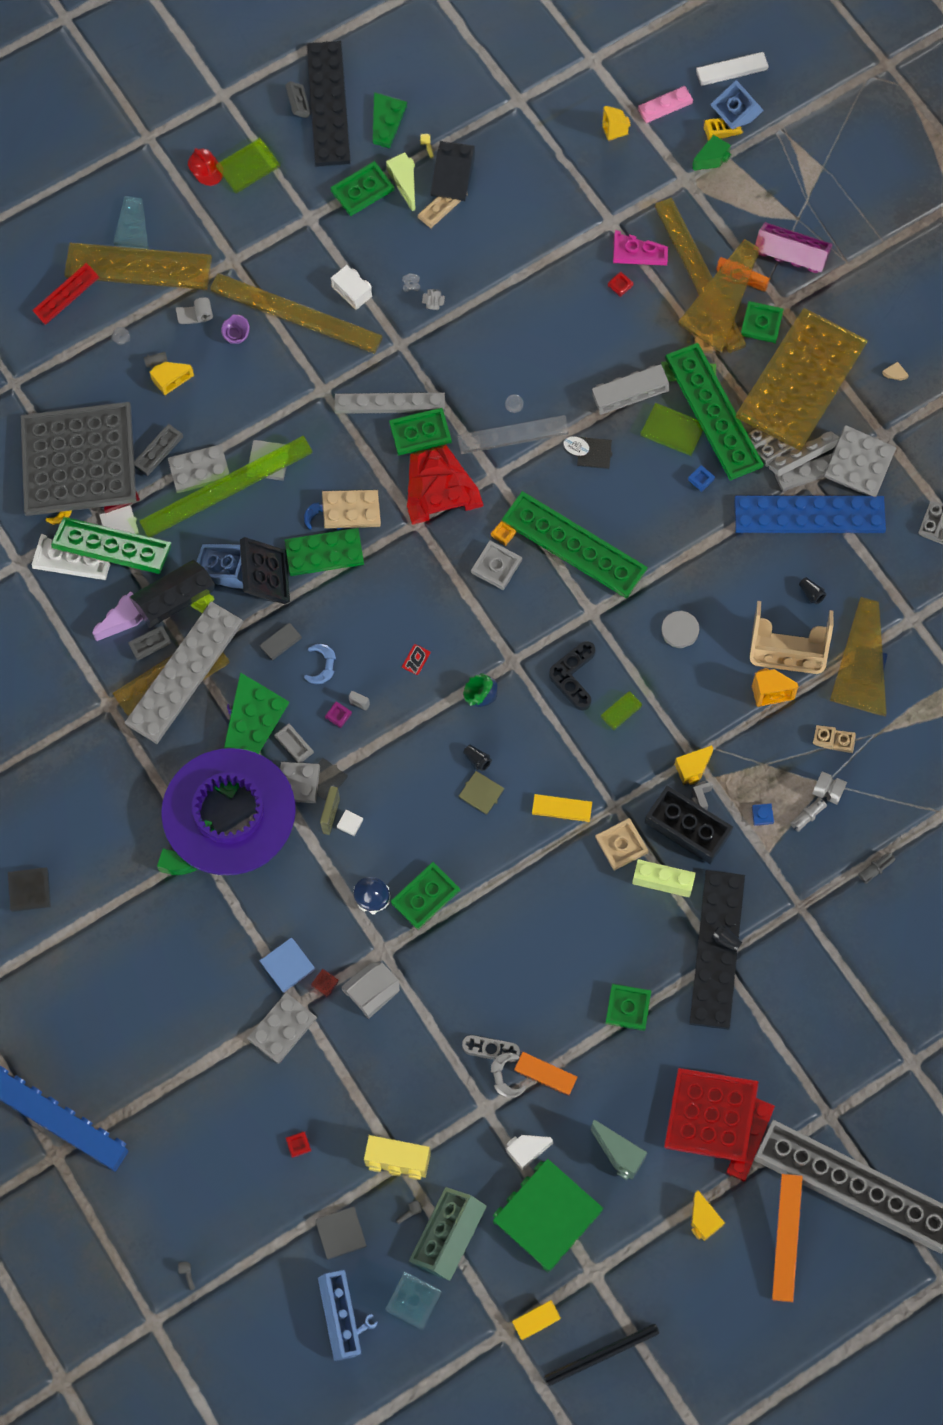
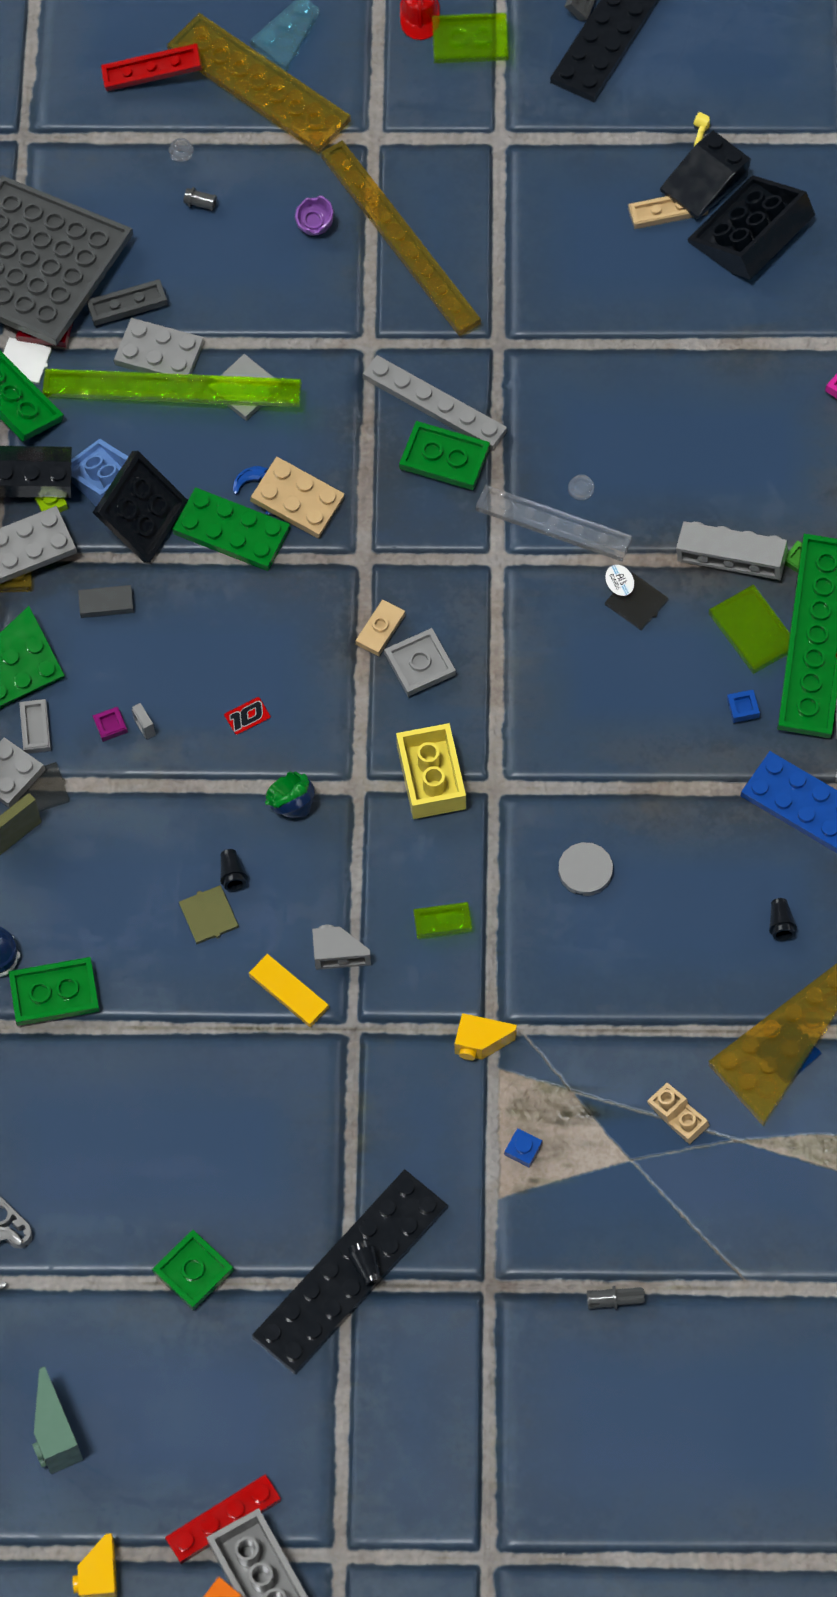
camera: 35 degrees right, 5 degrees down
(170, 375) = (203, 227): yellow slope -> none
(198, 313) = (285, 174): light grey panel -> none
(326, 674) = (131, 670): medium blue piece -> none
(350, 823) = (31, 855): white tile -> none
(351, 287) = (486, 243): white brick -> none
(362, 188) = (584, 137): green plate -> none
(386, 119) = (674, 73): green wing -> none
(402, 173) = (644, 151): yellowish green slope -> none
(411, 278) = (562, 271): clear plate -> none
(433, 299) = (572, 311): light grey gear -> none
(438, 484) = (422, 529): red wedge -> none
(457, 558) = (380, 627): none -> tan plate
(501, 186) = (753, 225): none -> black slope
(503, 533) = (457, 630): light orange tile -> none
(545, 1073) = (41, 1284): orange tile -> none
(552, 626) = (431, 771): none -> light yellow brick
(567, 671) = (411, 836): black beam -> none
(573, 765) = (338, 949): none -> light grey slope
(574, 545) = (530, 694): green plate -> none
(620, 284) = (816, 421): red tile -> none
(621, 844) = (326, 1075): tan plate -> none
(663, 878) = (345, 1146): yellowish green brick -> none
(688, 824) = (420, 1101): black brick -> none
(698, 793) = (456, 1082): light grey bracket -> none
(711, 1115) = (195, 1457): red plate -> none
(773, 687) = (640, 1003): light orange slope -> none
(788, 651) = (697, 973): tan windscreen -> none
(808, 814) = (579, 1182): light grey pin -> none
(829, 788) = (623, 1162): light grey wheel -> none

